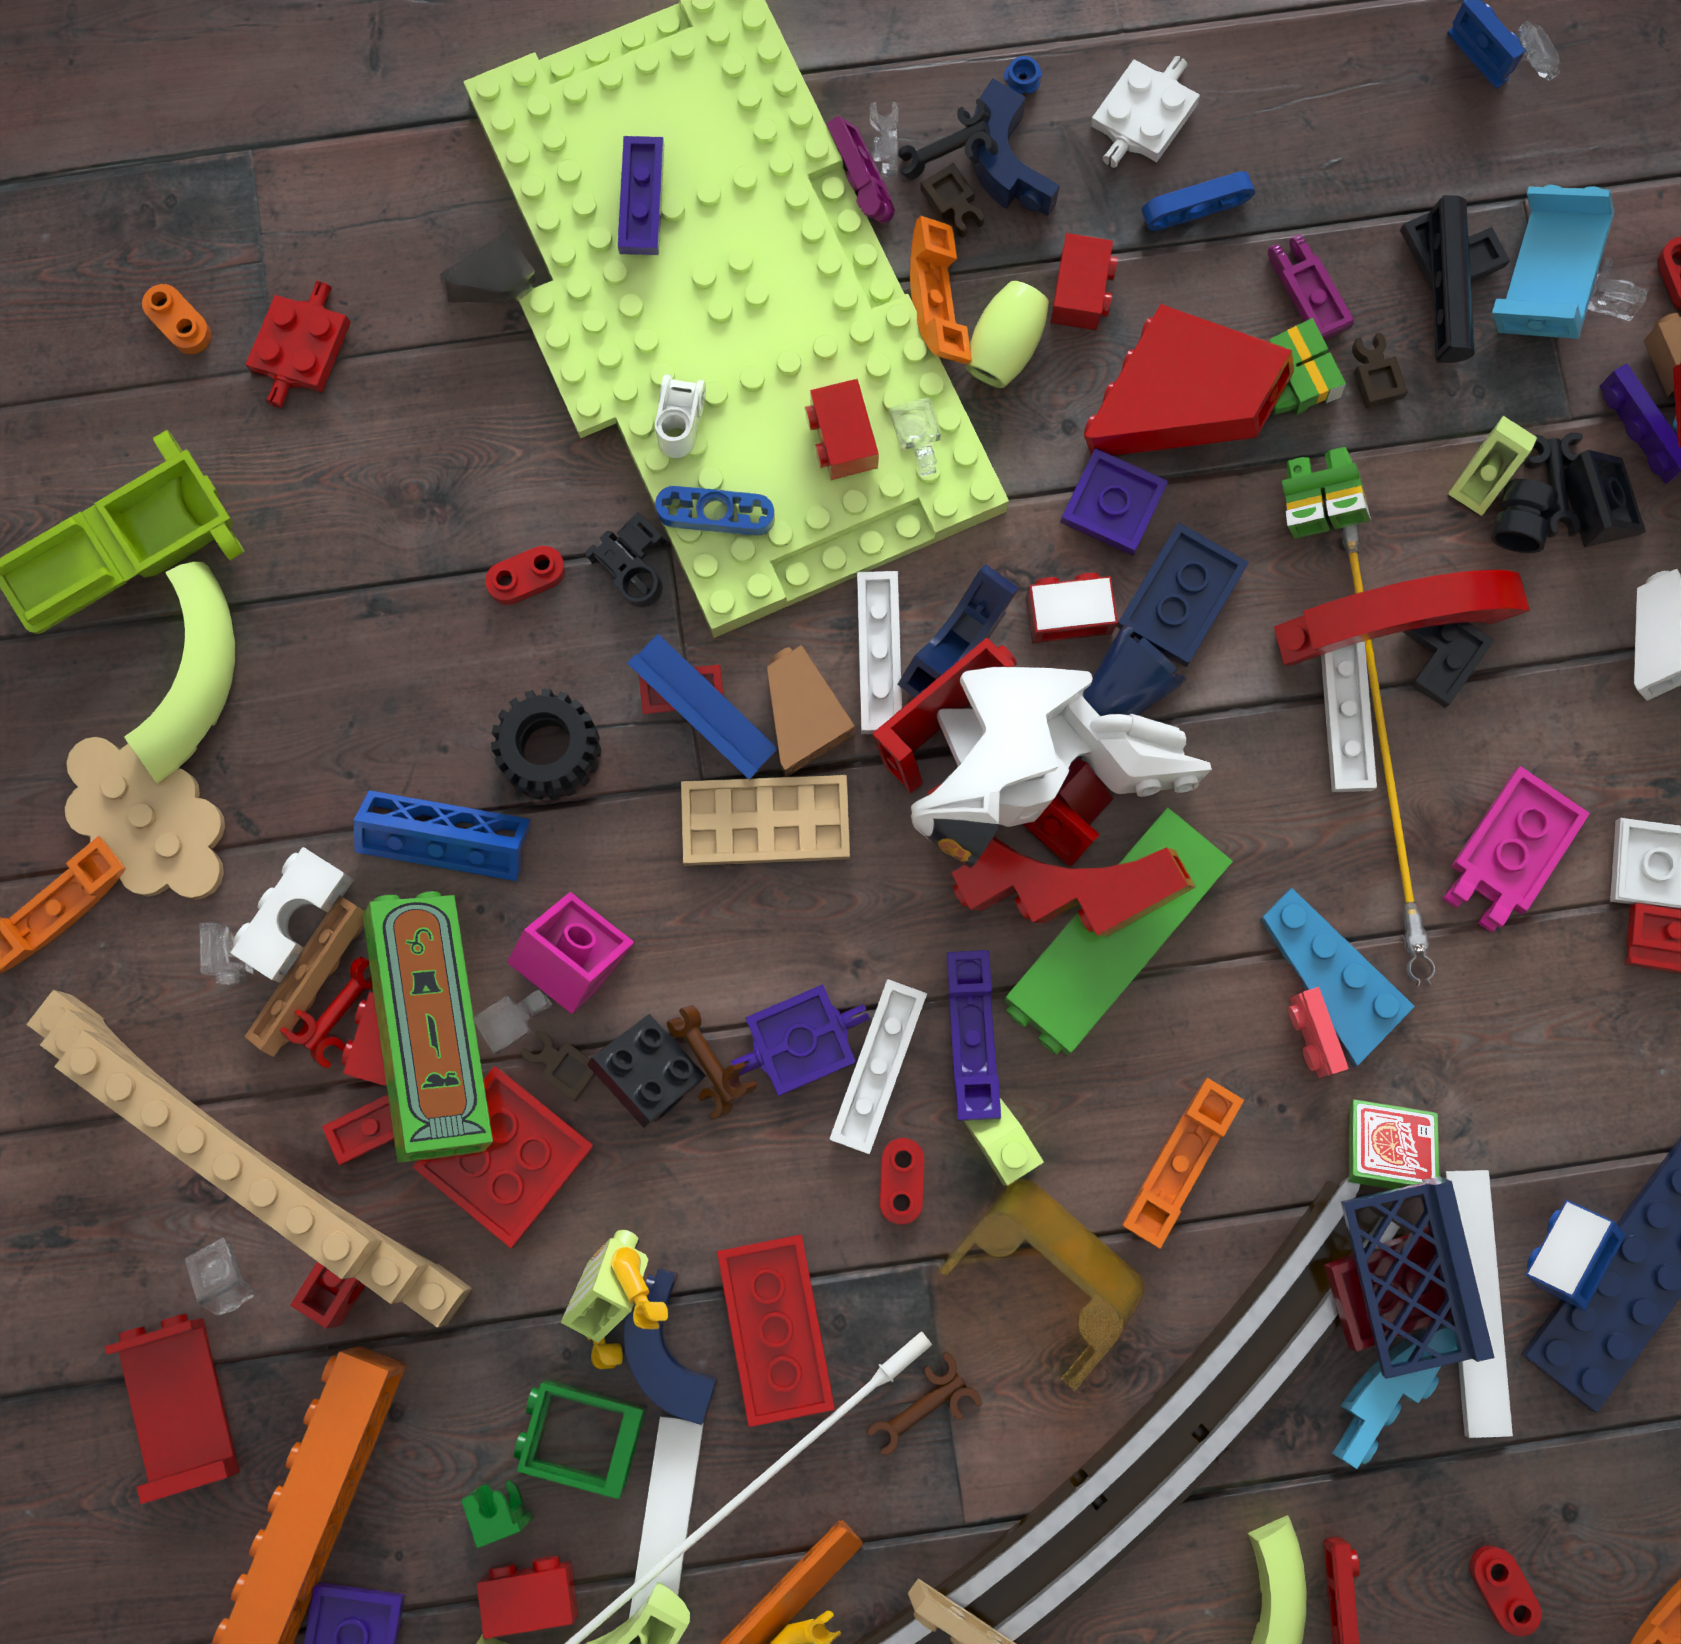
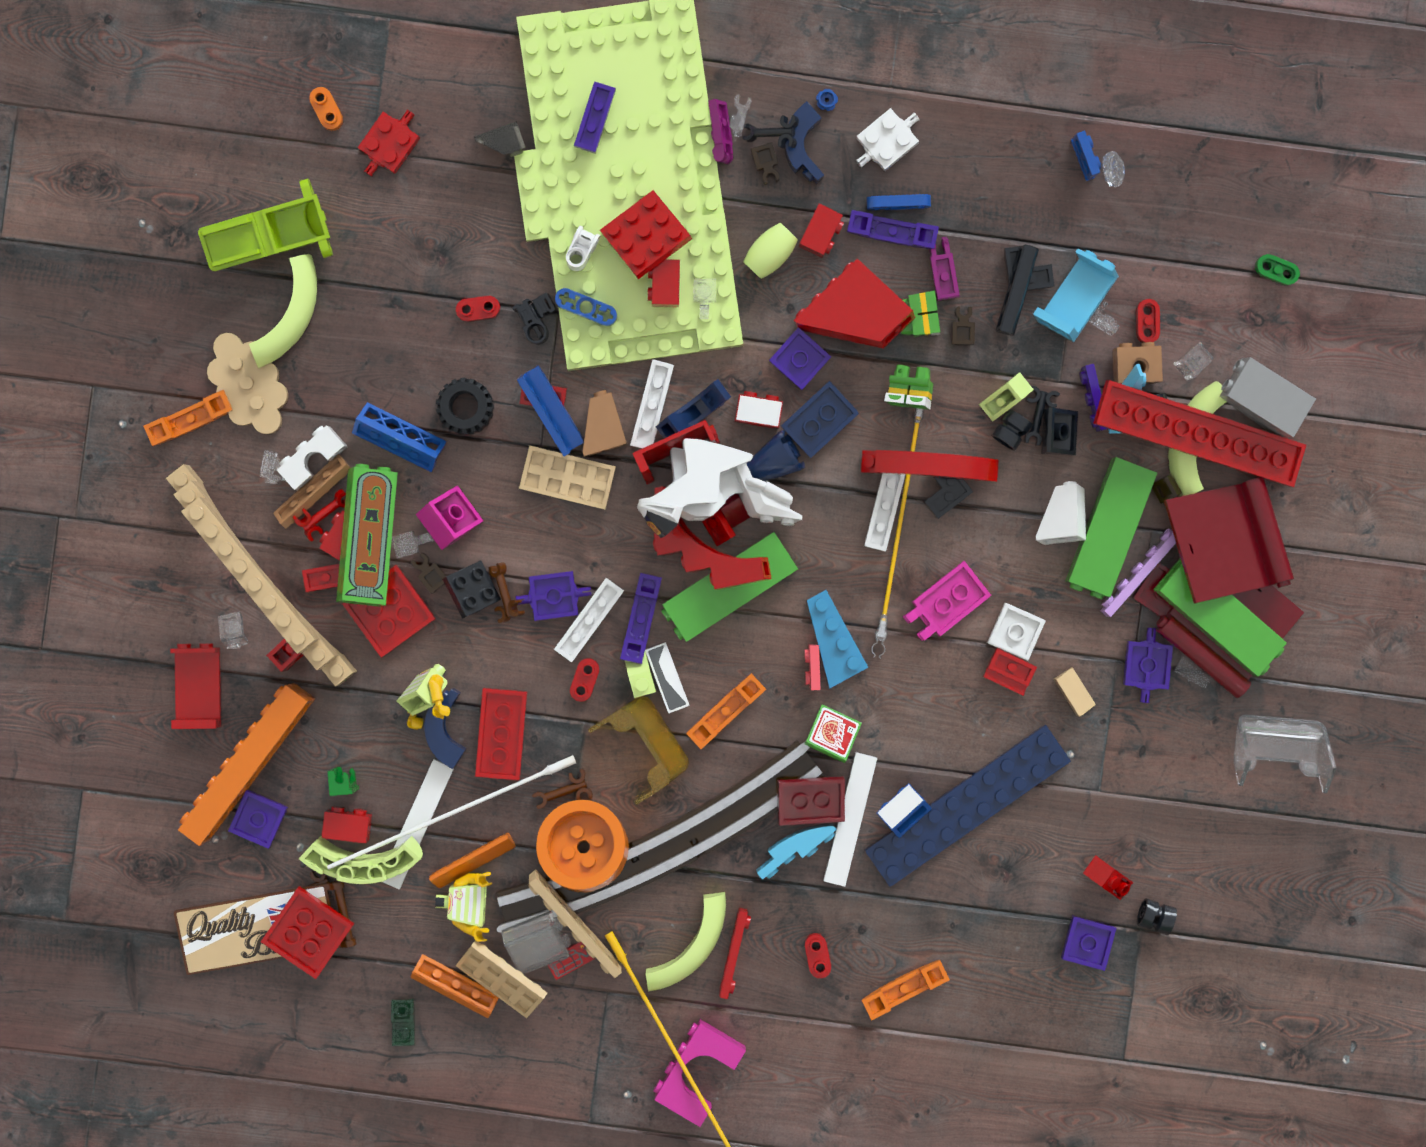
camera: 15 degrees right, 10 degrees up
(529, 1442) = (410, 772): green window -> none
(785, 356) = (646, 234): none -> red plate
(931, 293) = (738, 214): orange slope -> none
(953, 1477) = (570, 826): none -> orange brick
(1055, 1133) = (667, 677): none -> slope
(1205, 251) = (892, 231): none -> dark purple slope
(1454, 1267) = (837, 796): dark blue fence -> none

